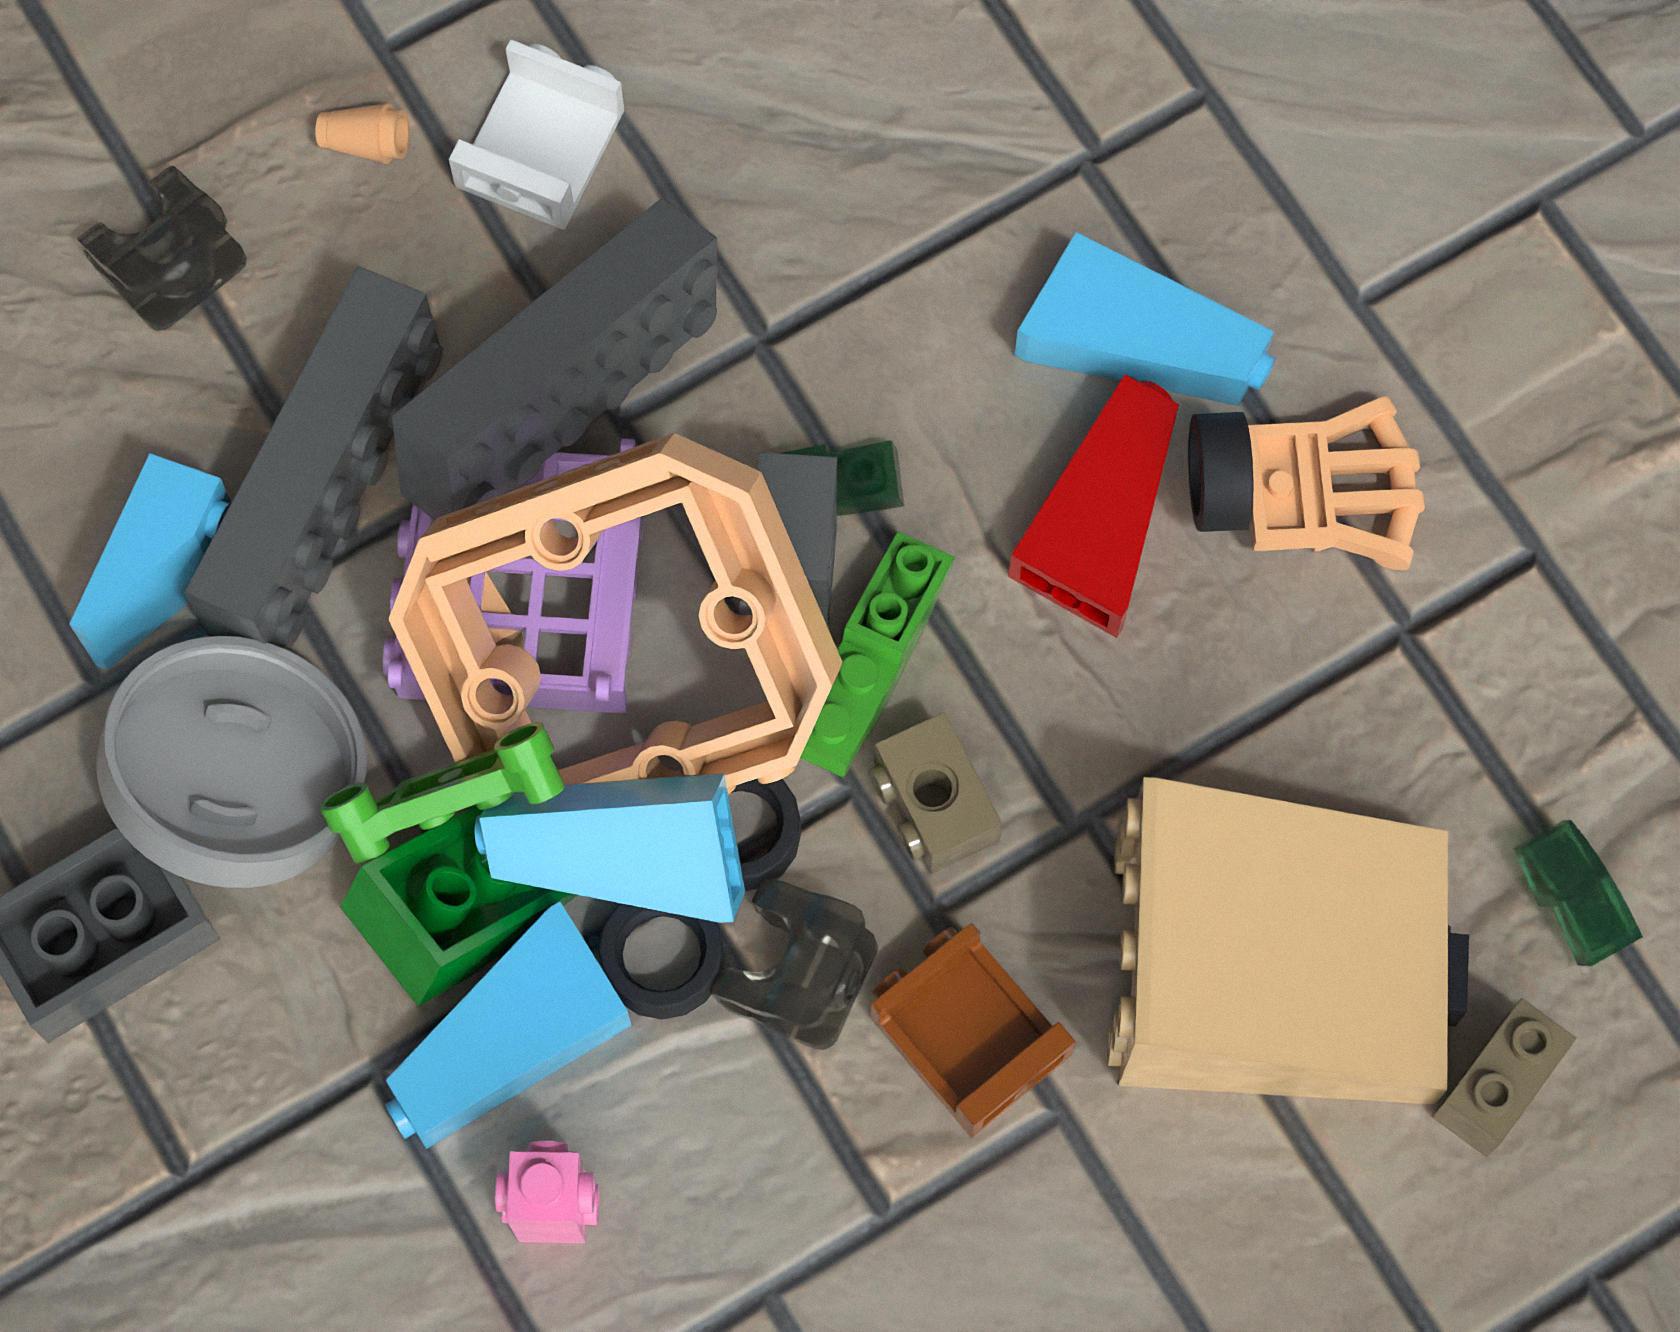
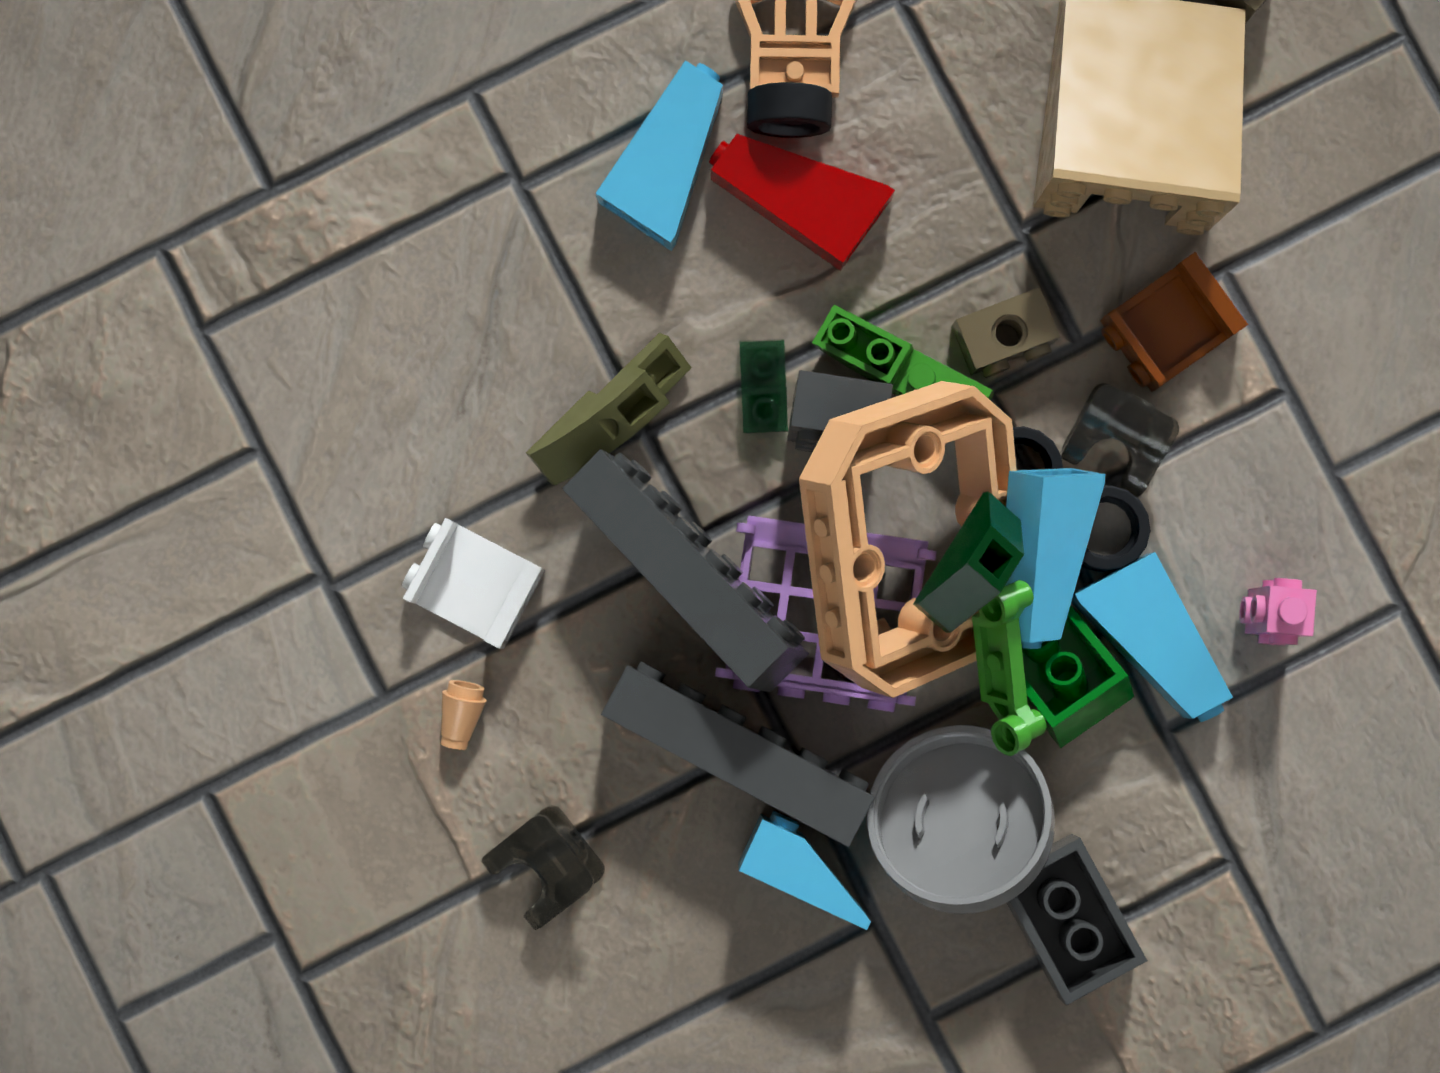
camera: 85 degrees left, 15 degrees up
(583, 709) = (973, 565): none -> dark green slope
(784, 287) = (612, 414): none -> olive slope

